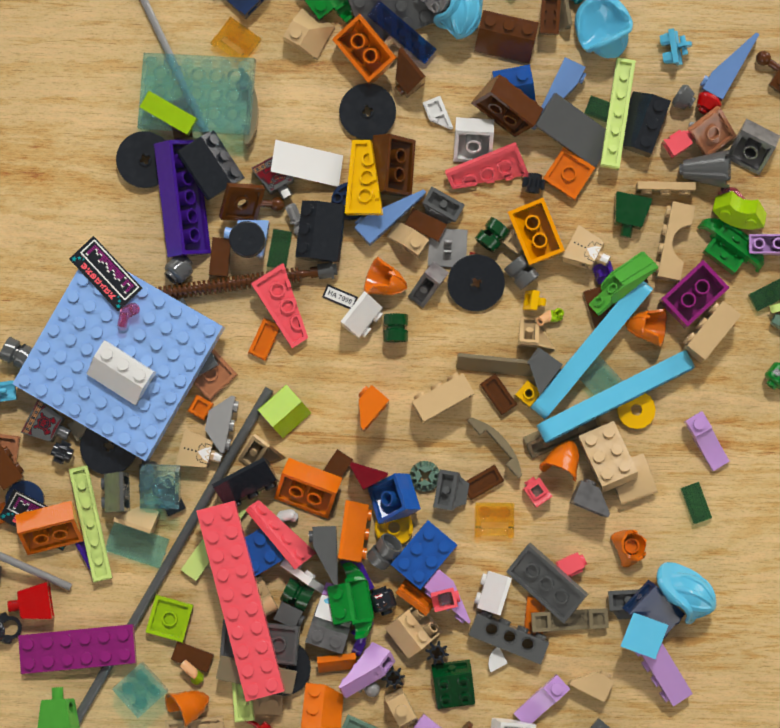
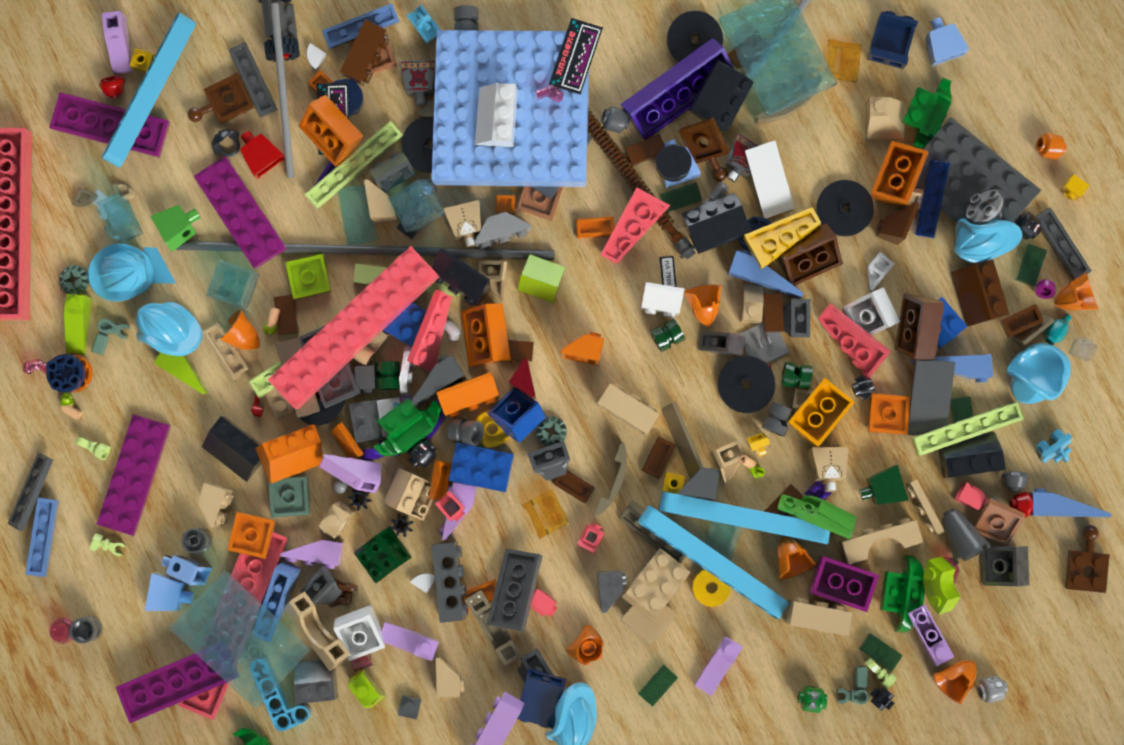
camera: 70 degrees right, 0 degrees up
(62, 452) = (402, 107): black gear -> none
(168, 113) = (747, 36): lime tile -> none
(493, 592) = (480, 547): white slope -> none
(563, 456) = (634, 545): orange helmet -> none
(644, 635) = (513, 702): medium azure sticker -> none

